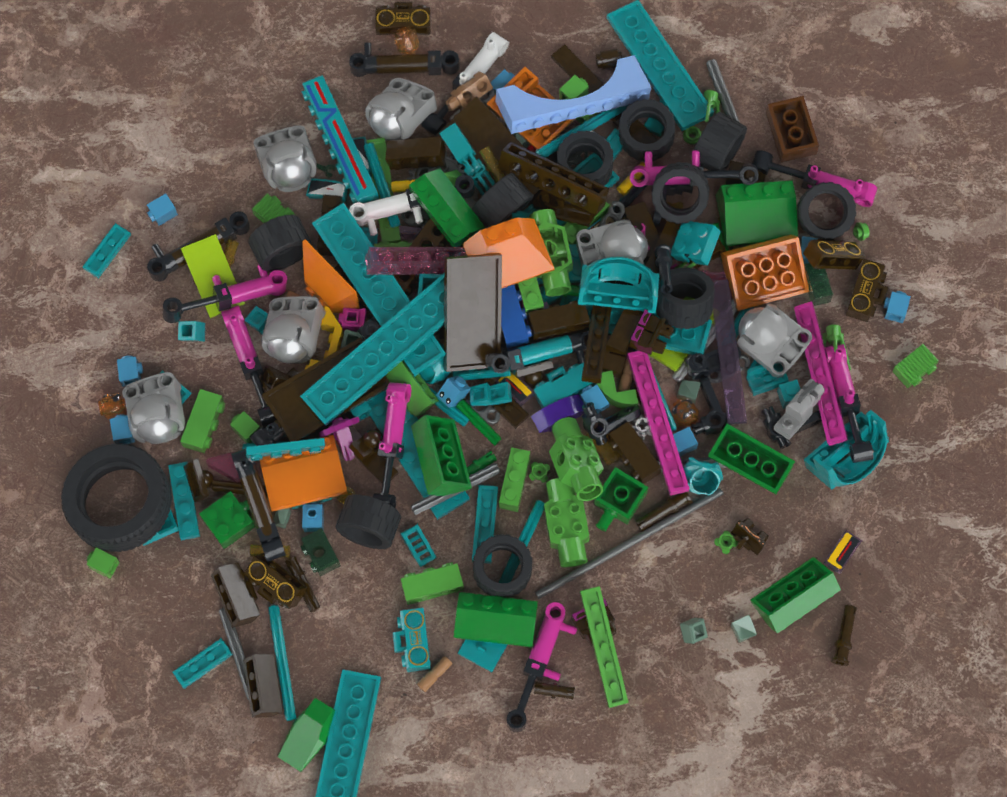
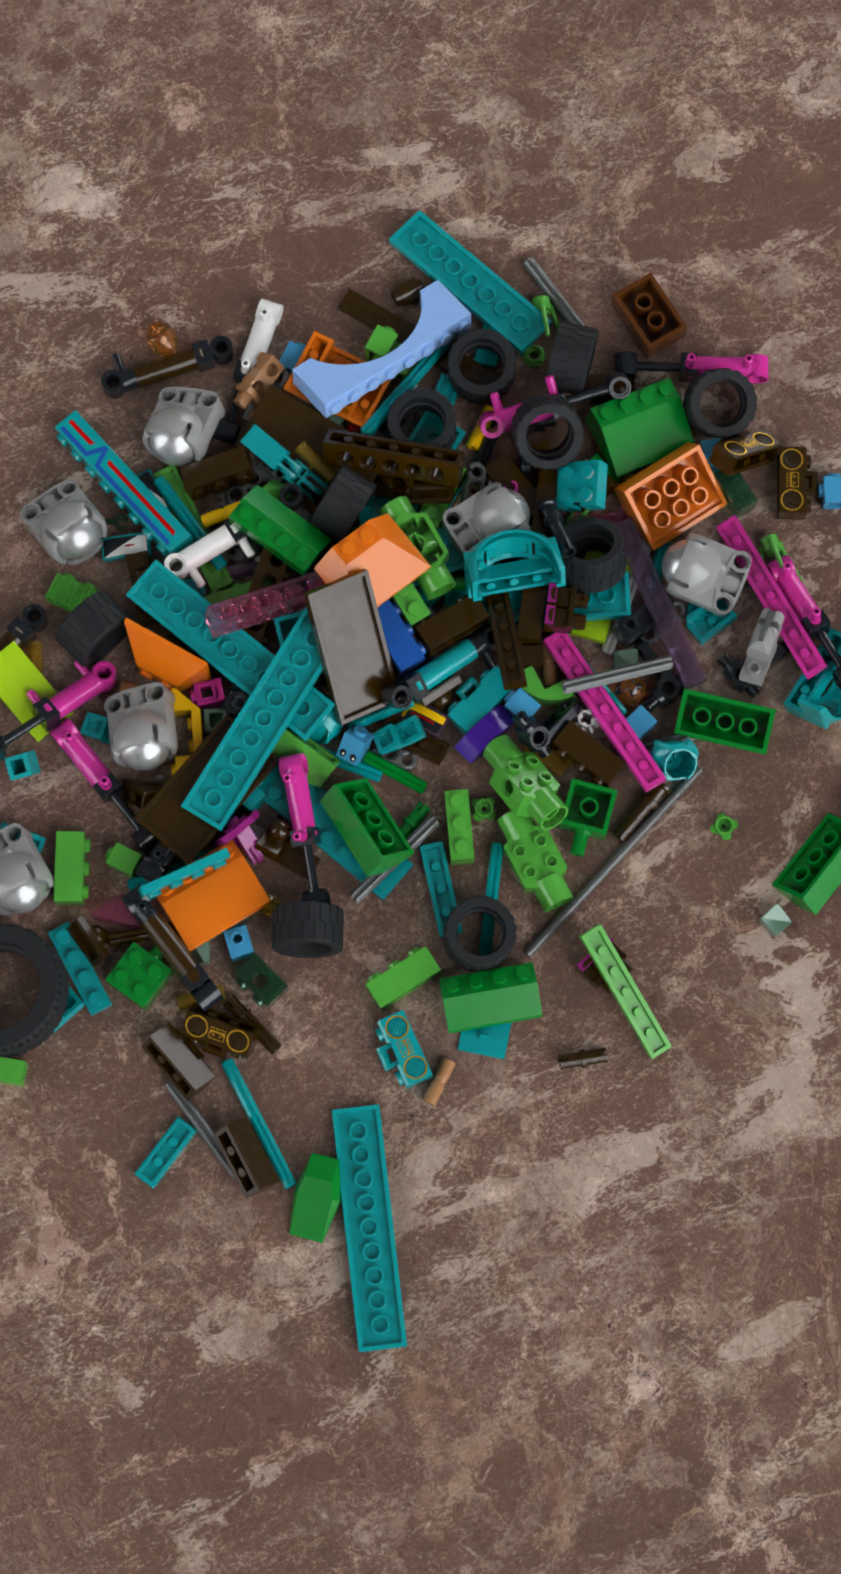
camera: 20 degrees left, 5 degrees up
(403, 14) = (136, 317): dark brown piece -> none
(420, 535) = (351, 930): teal slope -> none
(538, 660) = (554, 1027): dark pink piece -> none
(676, 396) = (617, 674): none -> dark grey axle
(693, 630) = (719, 940): sand green slope -> none
(748, 538) = (748, 814): dark brown hips -> none
(787, 392) = (741, 631): teal brick -> none
(861, 231) = (765, 414): bright green plate -> none

